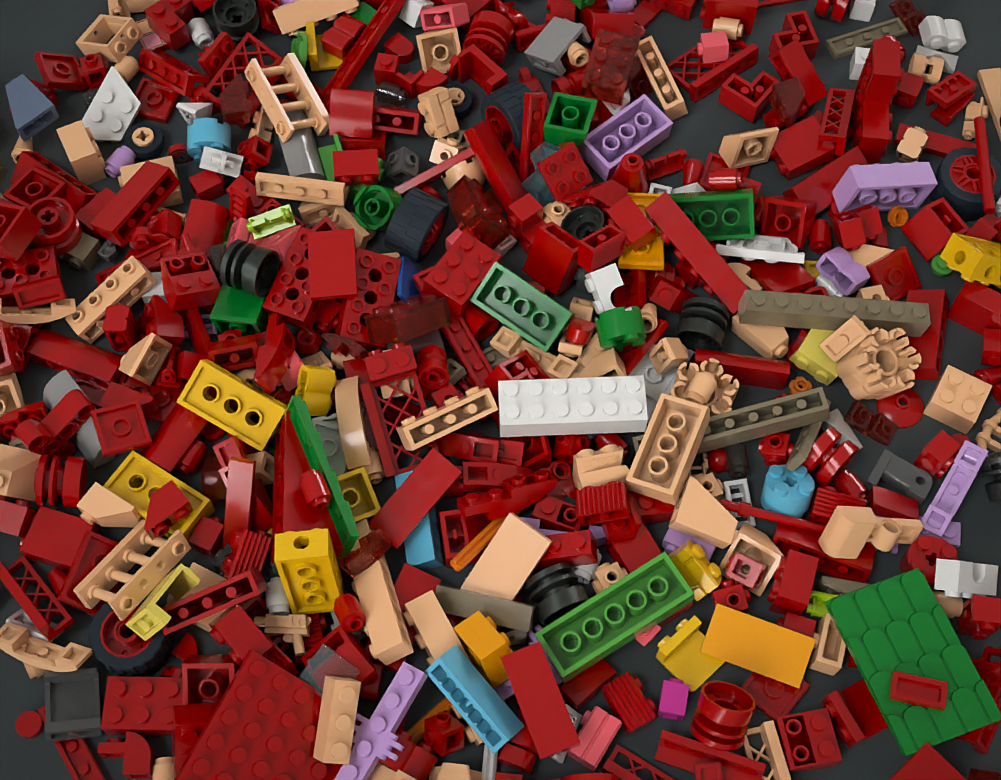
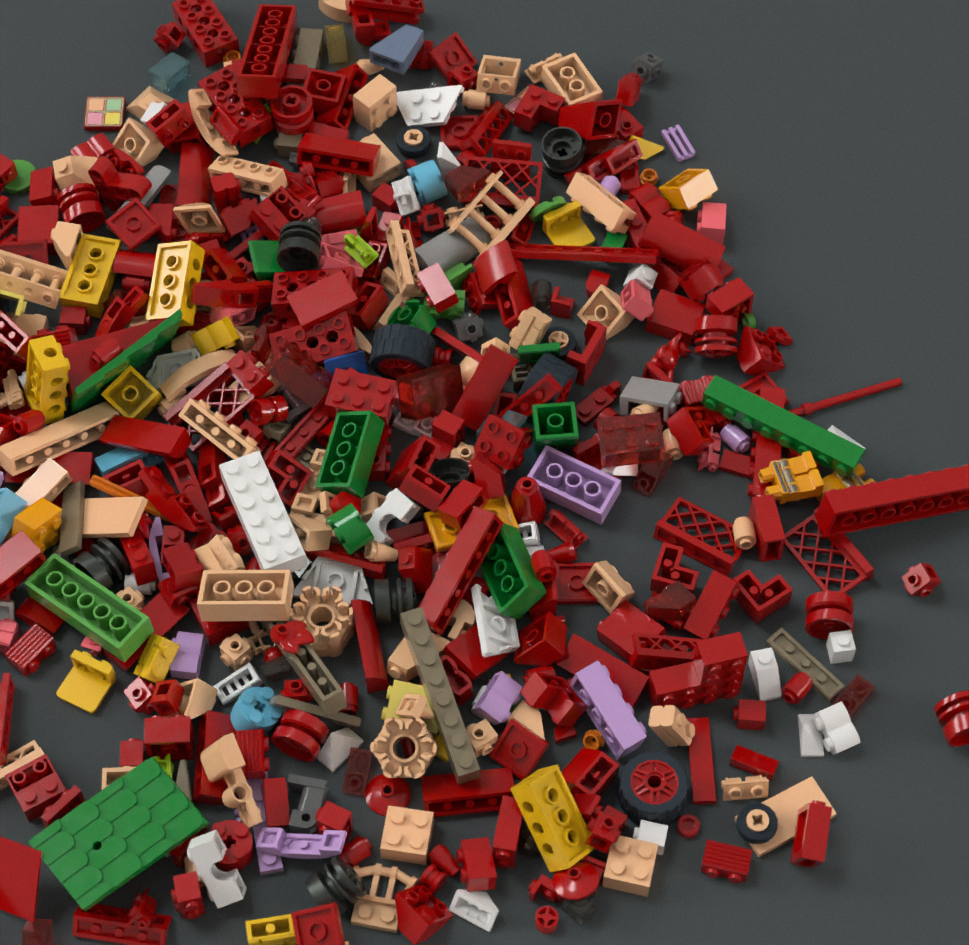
camera: 70 degrees right, 5 degrees down
(120, 157) = (385, 132): lavender brick -> none
(165, 509) = (74, 276): red slope -> none
(200, 32) = (537, 134): white brick -> none
(238, 497) = (102, 318): tile -> none
(342, 35) = (582, 233): red brick -> none
(372, 549) = (82, 417): clear red slope -> none
(386, 68) = (565, 279): red brick -> none
(430, 80) = (567, 318): red brick -> none
(472, 109) = (534, 352): none -> green plate
(491, 34) = (631, 343): red wheel -> none
(661, 79) = (656, 494): light nougat brick -> none
(668, 355) = (349, 579): light nougat slope -> none
(672, 699) = (43, 680): dark pink brick -> none
(701, 388) = (311, 603): light nougat brick -> none
(703, 516) = (201, 645): light nougat slope -> none
(713, 47) = (713, 526): coral brick -> none
(722, 715) = (33, 711): red wheel -> none
(733, 419) = (291, 635): none -> red plate
(745, 509) = (224, 682): red bar -> none
(758, 645) = (106, 726): light orange tile -> none
(772, 696) = (80, 756): red tile -> none
(793, 385) = (372, 709): orange plate -> none
(849, 483) = (286, 764): red brick -> none
(918, 66) = (783, 721): light nougat wheel -> none
(918, 690) = (86, 836): red tile -> none
(950, 90) = (765, 750): red bracket -> none
(984, 165) = (666, 787): red piece -> none

